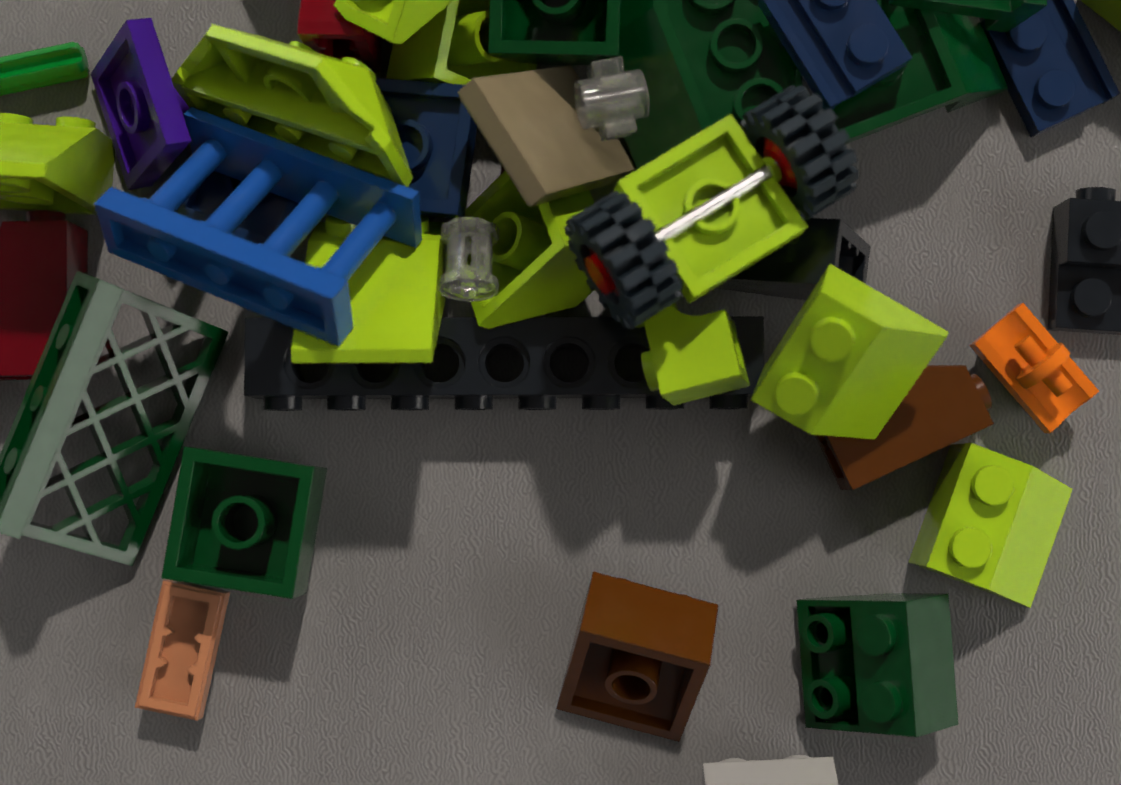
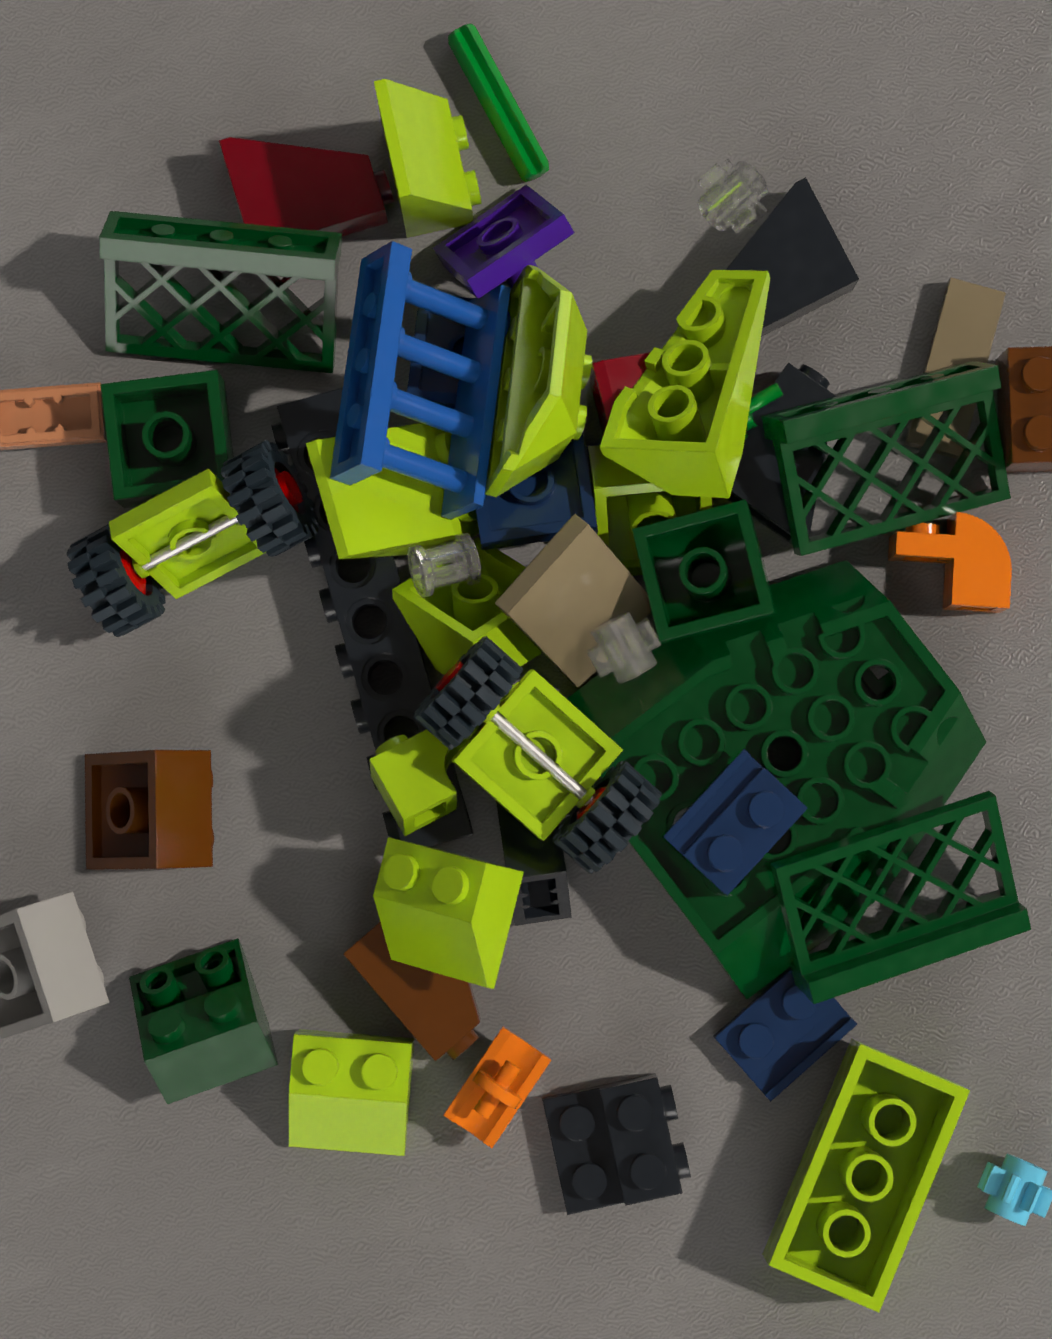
camera: 70 degrees right, 0 degrees up
(358, 526) = (191, 537): none -> plate

